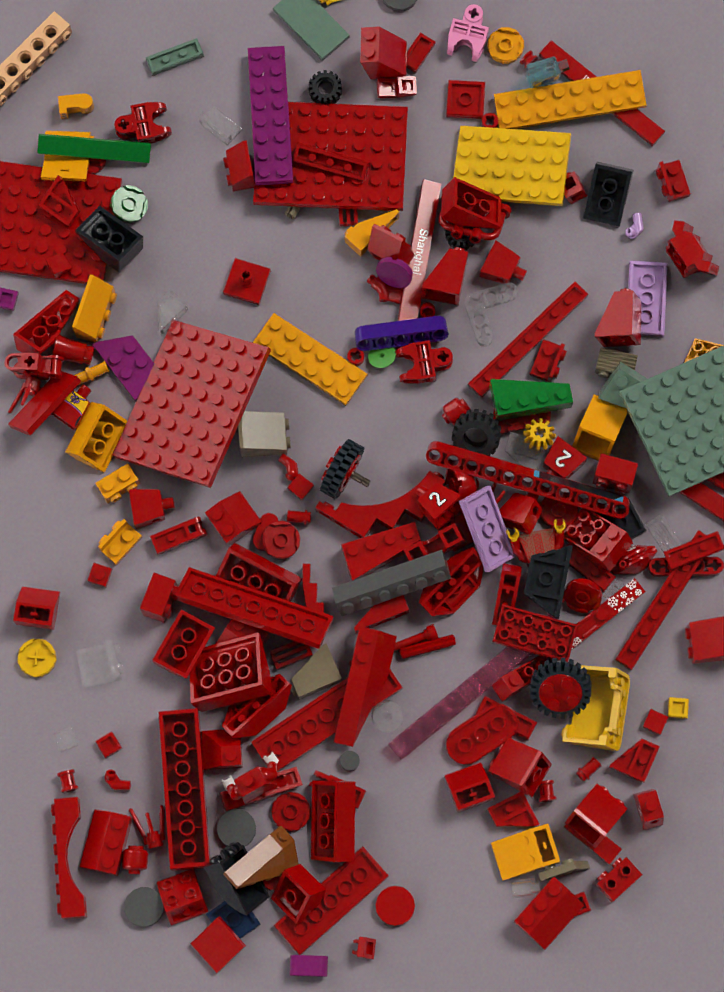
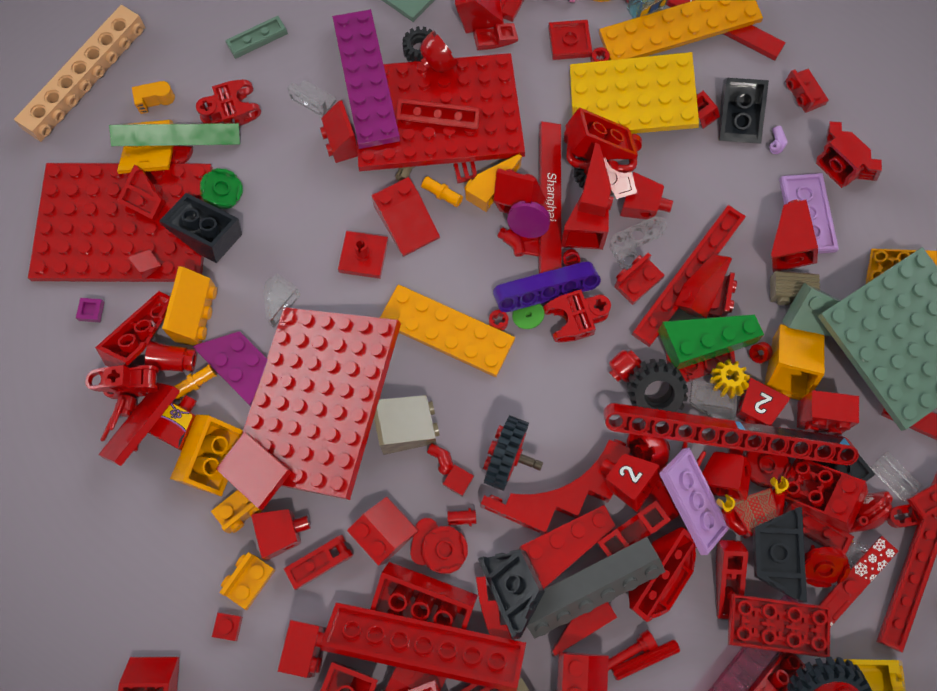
camera: 10 degrees left, 5 degrees down
(135, 454) = (253, 471): none -> tile
(288, 252) = (405, 216): none -> red slope
(324, 233) = (442, 191): none -> light orange pin
(331, 574) = (514, 588): none -> black wing
(338, 103) = (437, 54): none -> red cylinder
(453, 258) = (597, 187): none -> red slope
(479, 250) = (621, 183): none -> tile
(481, 337) = (638, 279): none -> red bracket
(532, 354) = (702, 287): none -> red slope
(573, 416) = (765, 347): none -> red bush

